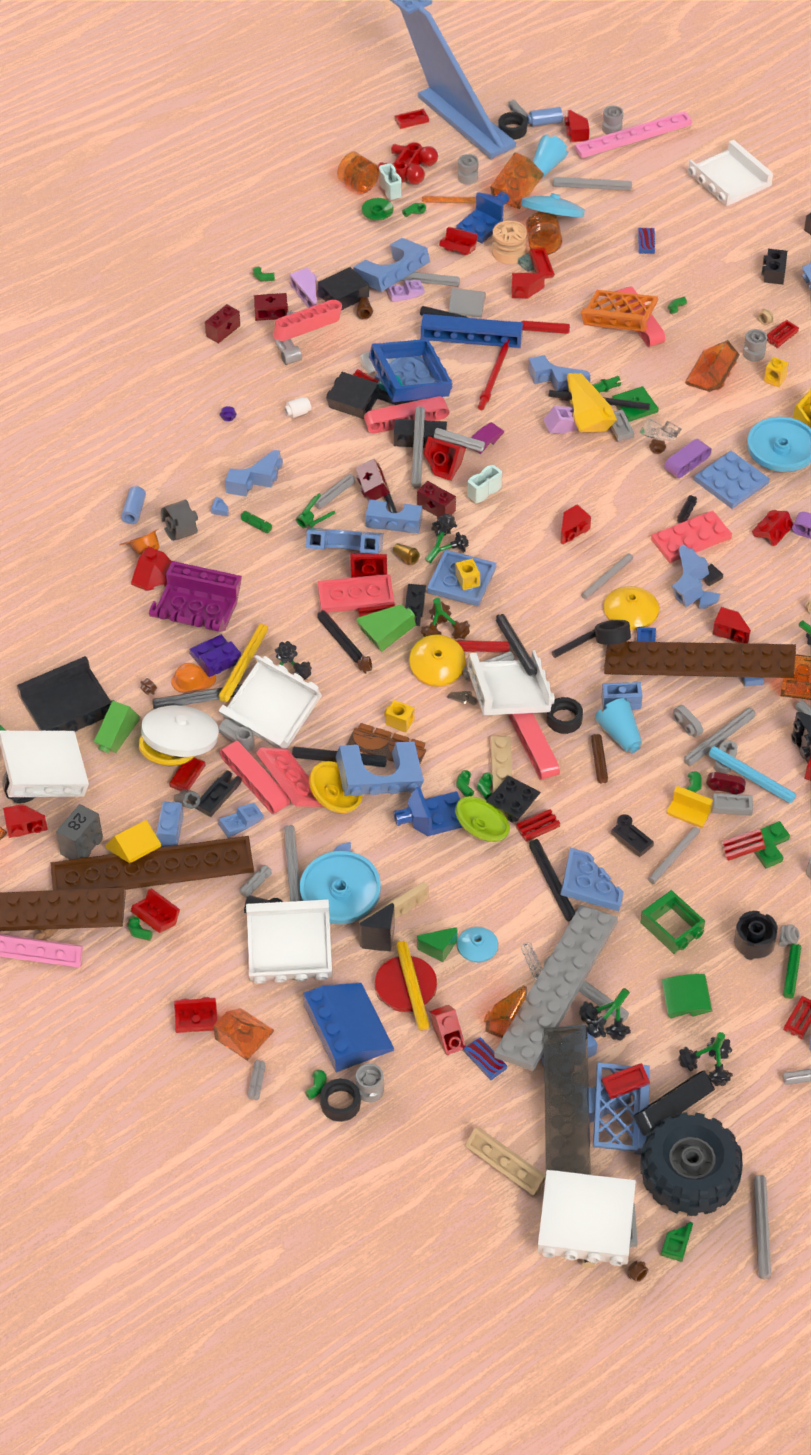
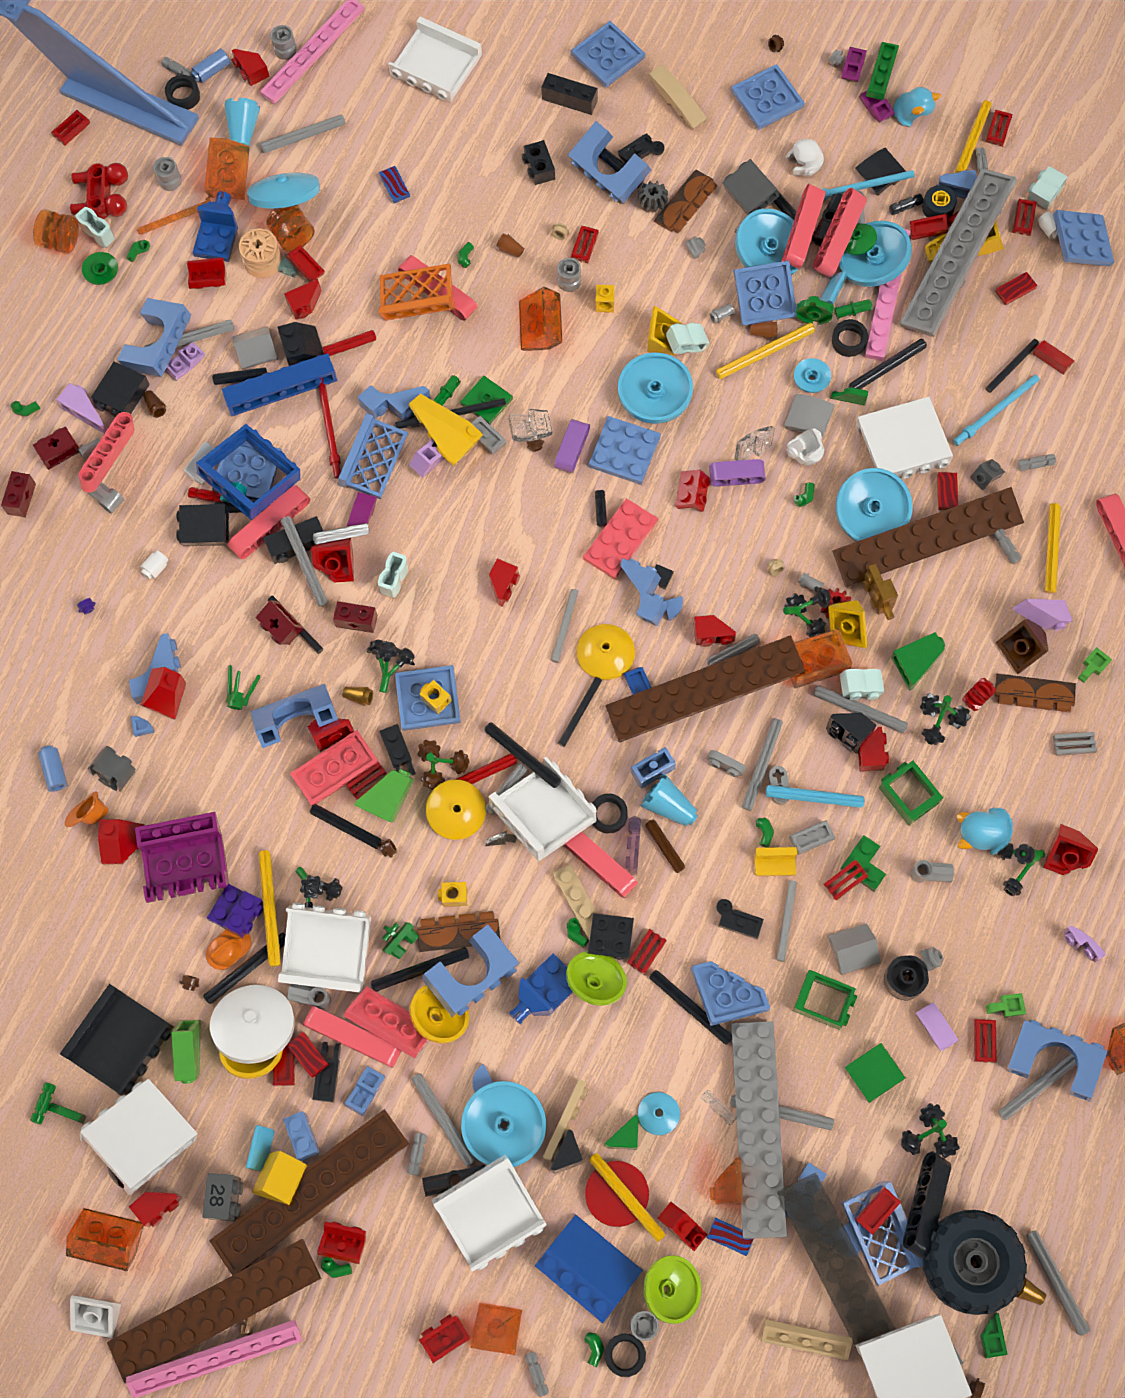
camera: 25 degrees left, 20 degrees up
(131, 816) = (260, 1147): none -> medium azure slope
(186, 794) = (304, 1099): dark grey hinge -> none
(210, 770) = (307, 1054): none -> tile
(253, 486) = (164, 692): none -> red slope
(256, 521) = (188, 727): green axle -> none
(333, 723) = (393, 946): none -> green hips
(334, 491) = (246, 650): light grey axle -> none
(407, 520) = (338, 655): medium blue arch -> none
(420, 1063) = (681, 1293): none -> lime dish
(463, 782) = (553, 940): green arm -> none
(504, 396) = (359, 447): none -> medium blue fence
(505, 307) = (300, 342): none -> black slope
(572, 745) = (633, 844): none -> clear purple hinge
(596, 1025) = (832, 1144): black plant -> none
(612, 632) = (614, 703): black tyre -> none
(717, 310) = (510, 245): none -> dark orange cone
(722, 901) = (854, 948): none -> light grey slope
(726, 783) = (788, 819): dark red plate -> none
(730, 1218) = (1031, 1293): none -> pearl gold cone
(763, 985) = (937, 1027): none -> lavender slope
(792, 971) = (953, 995): green axle -> none

